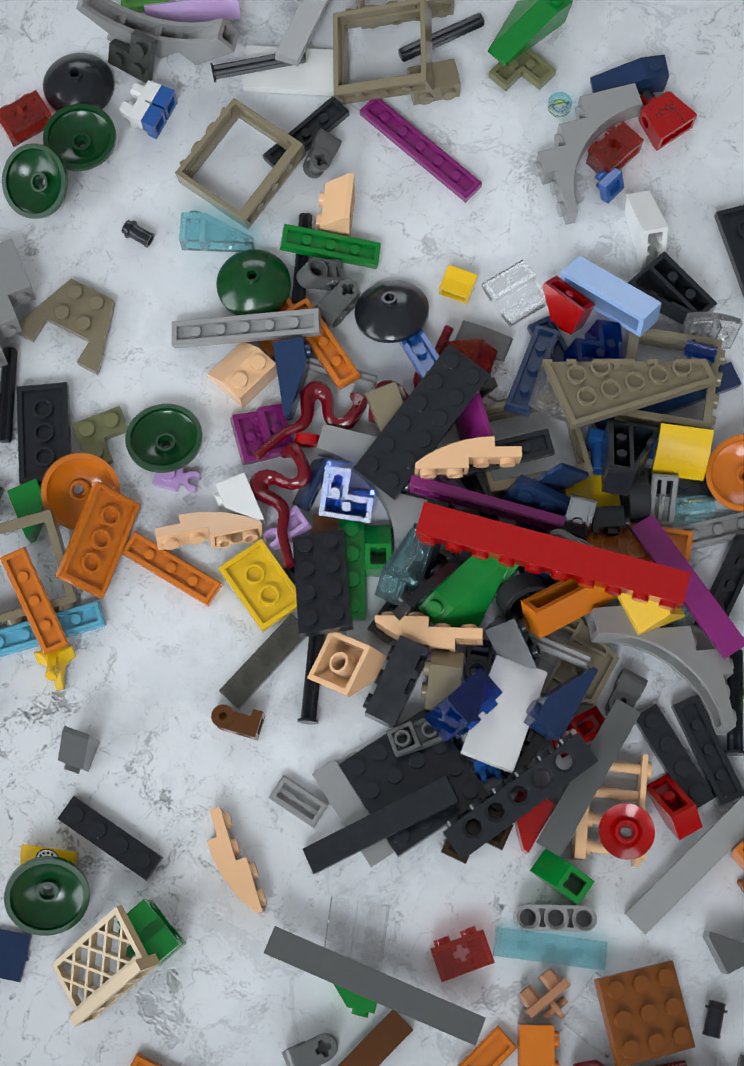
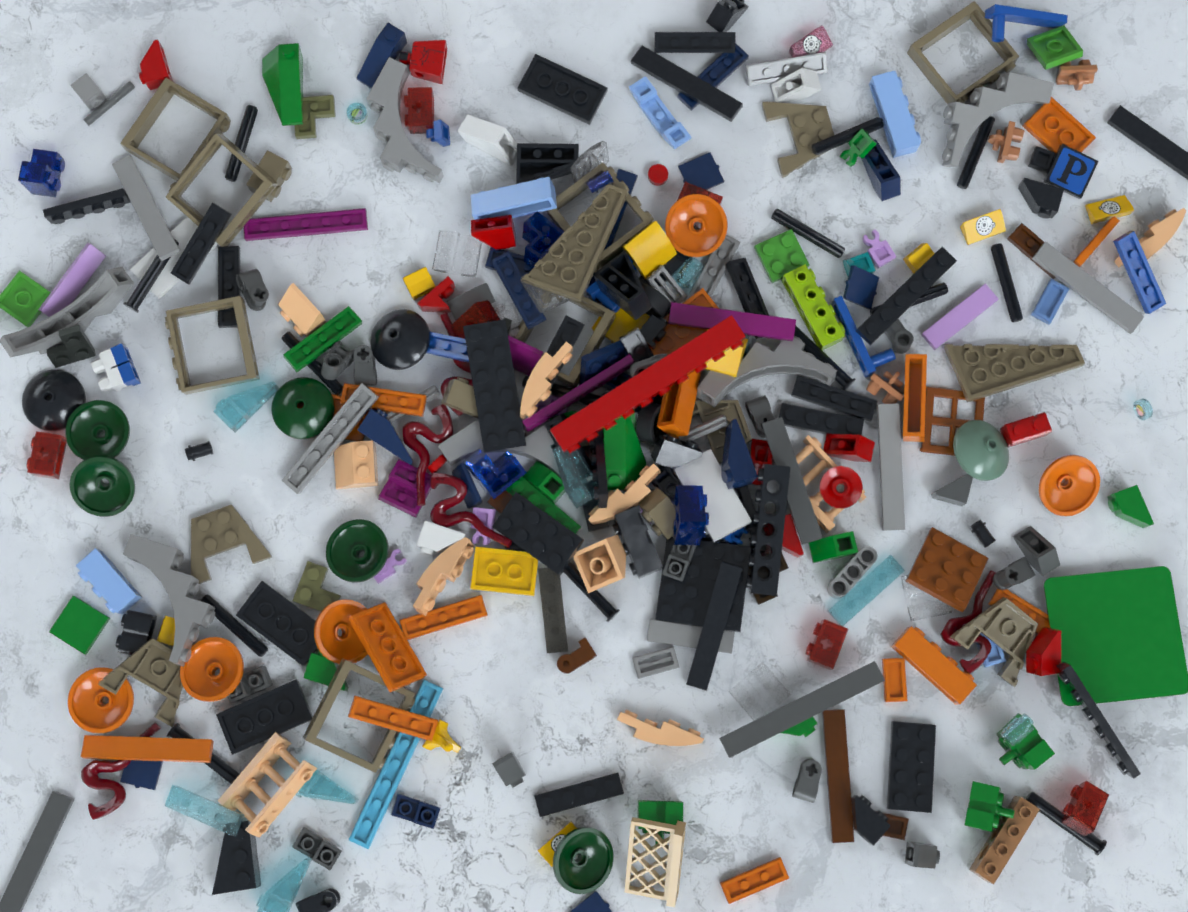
camera: 50 degrees left, 5 degrees up
(320, 76) = (201, 243): none -> black tile
(453, 308) = (433, 300): none -> red slope
(535, 1003) = (889, 626): nougat hips -> none
(561, 477) = (602, 334): dark blue piece -> none

